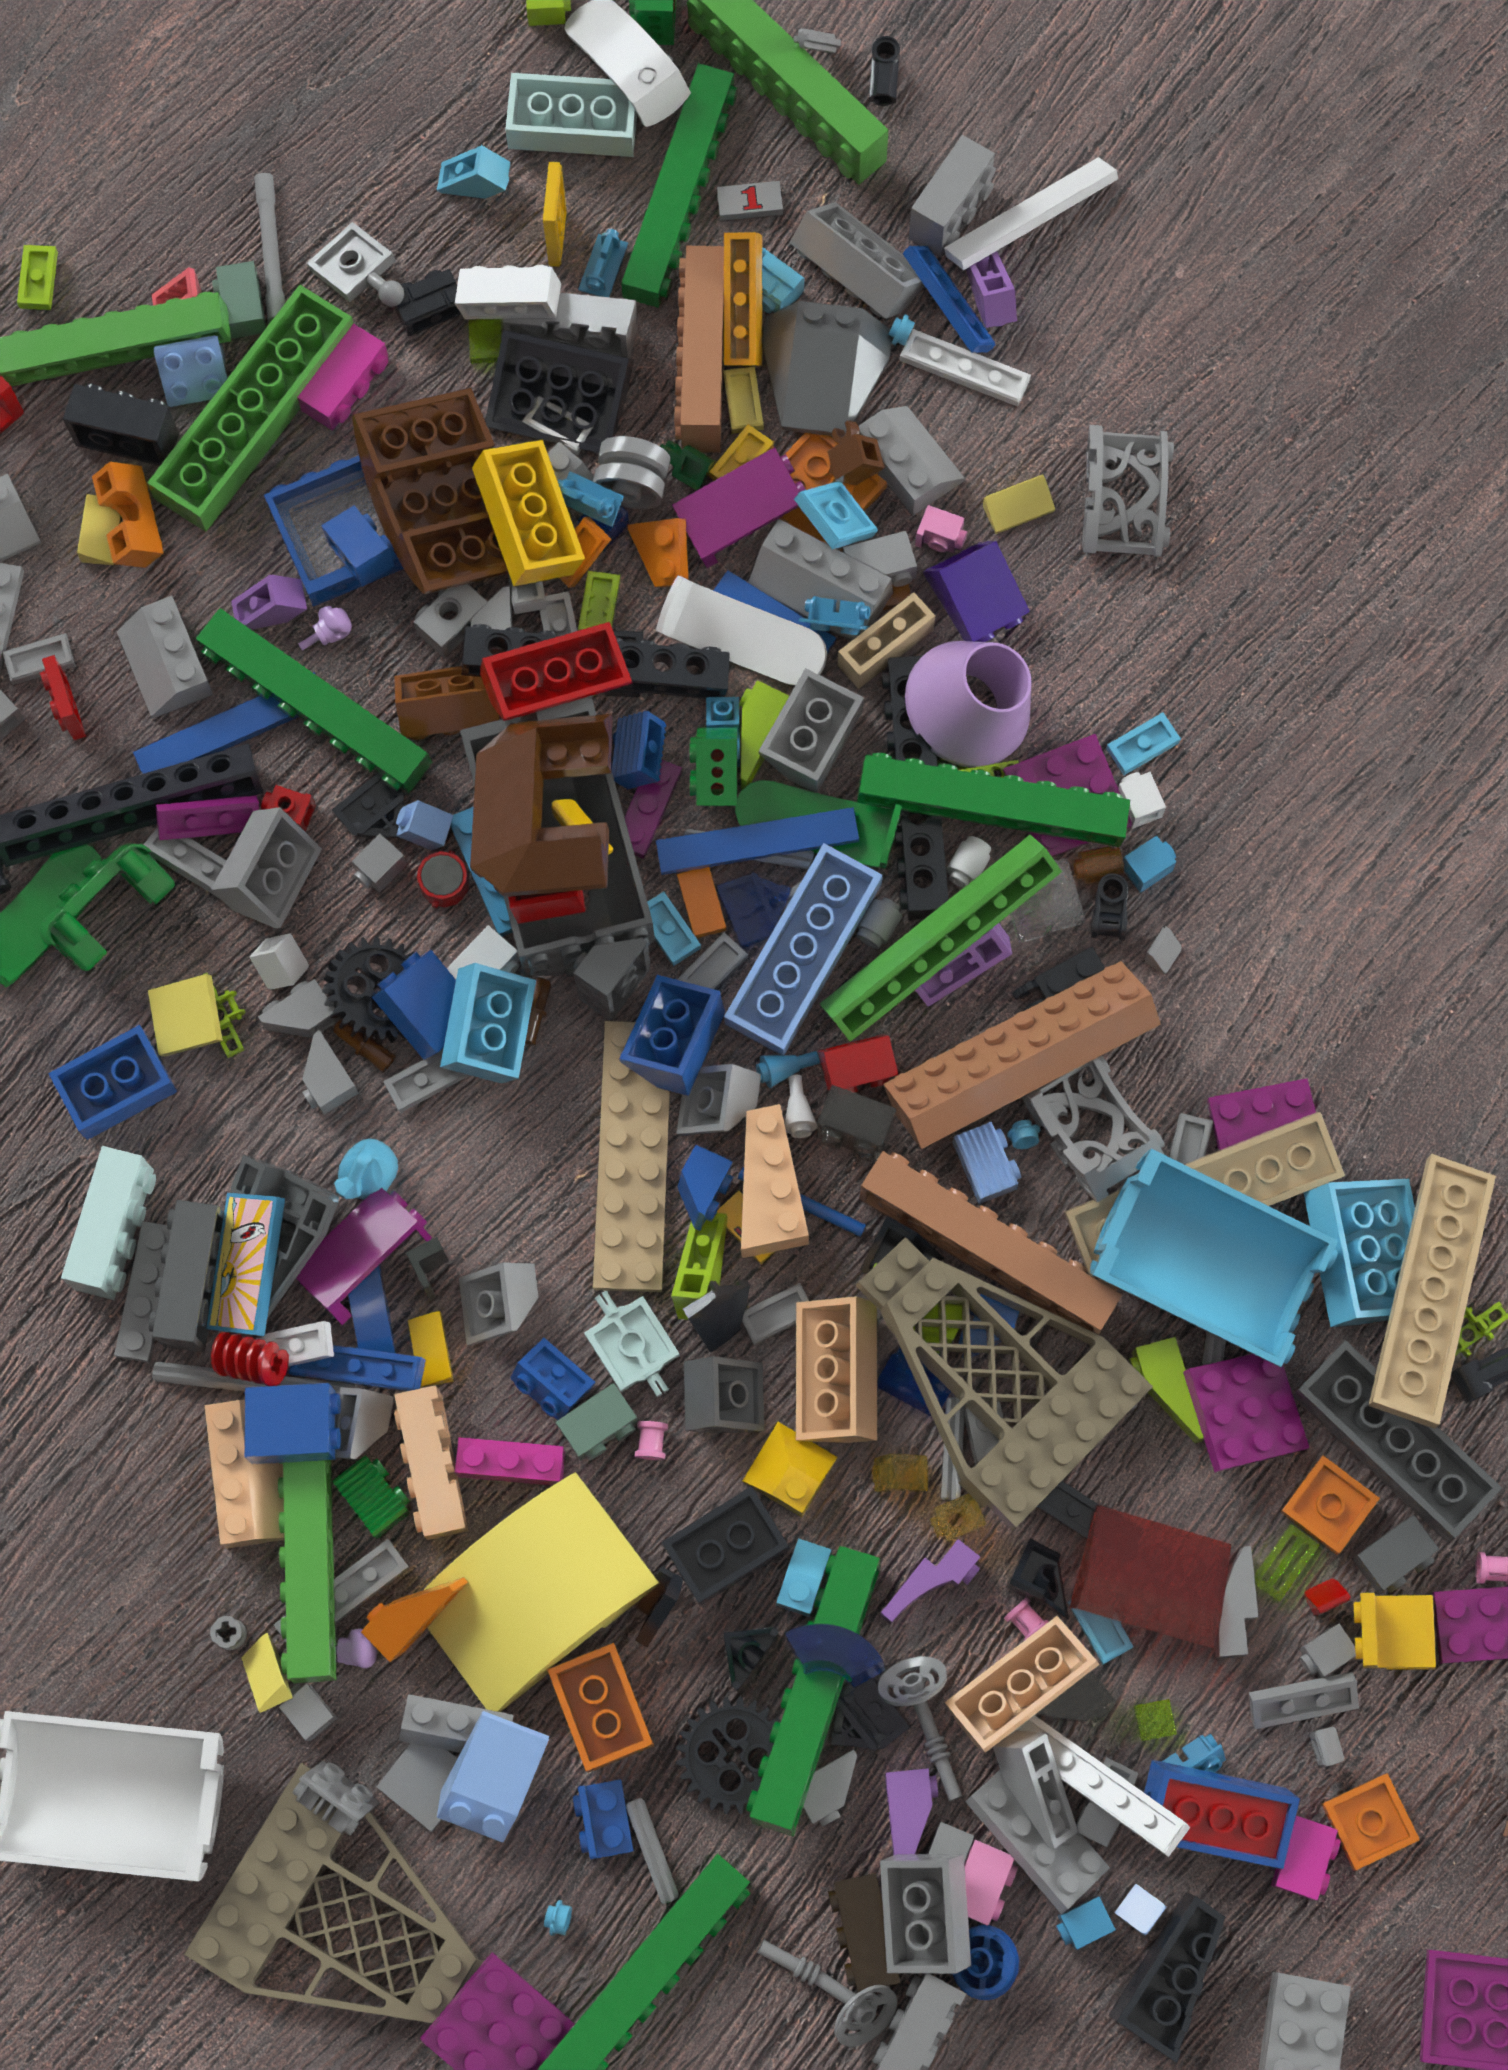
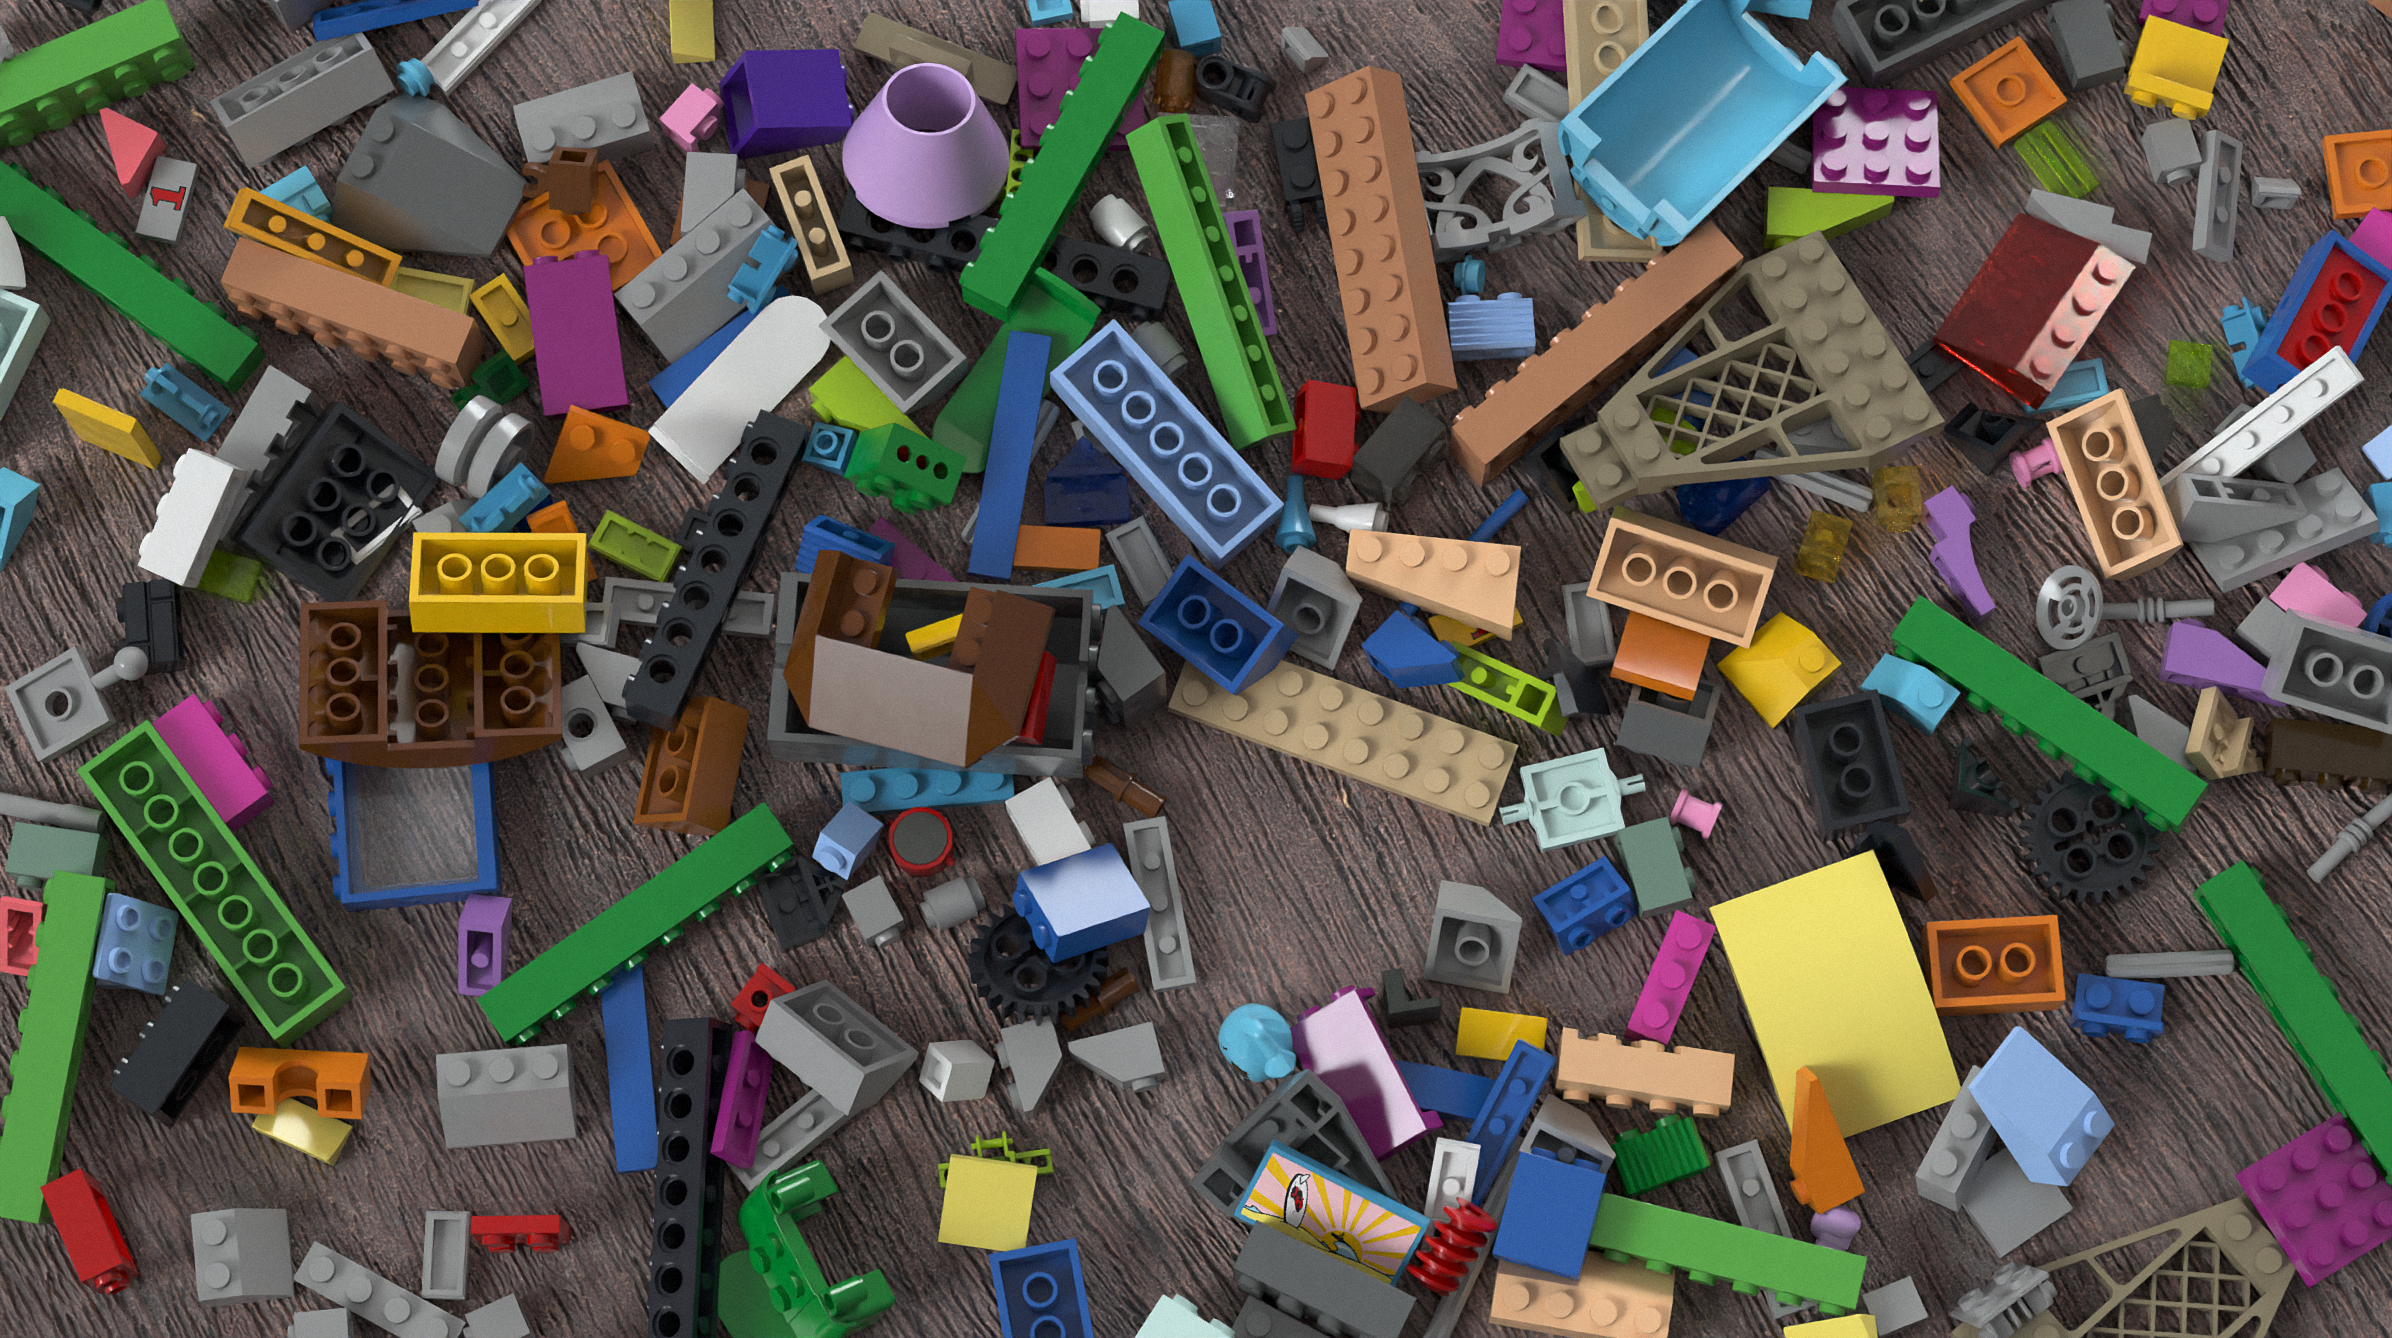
camera: 70 degrees left, 0 degrees up
(331, 627) = (542, 878): lavender piece -> none
(358, 545) = (459, 802): blue brick -> none
(403, 916) = (952, 903): none -> light grey brick
(488, 1023) = (1136, 833): medium azure brick -> none
(554, 671) = (734, 607): red slope -> none
(558, 1918) = (2215, 1094): medium azure plate -> none
(764, 1373) = (1660, 656): none -> orange tile
(774, 161) = (132, 148): none -> coral slope
(835, 1650) = (2018, 670): clear blue brick -> none
(836, 514) = (635, 225): medium azure tile -> none
(846, 1836) = (2219, 740): none -> tan slope
(1053, 687) = (907, 46): none -> dark tan bracket
(1326, 1596) = (2109, 132): red slope -> none

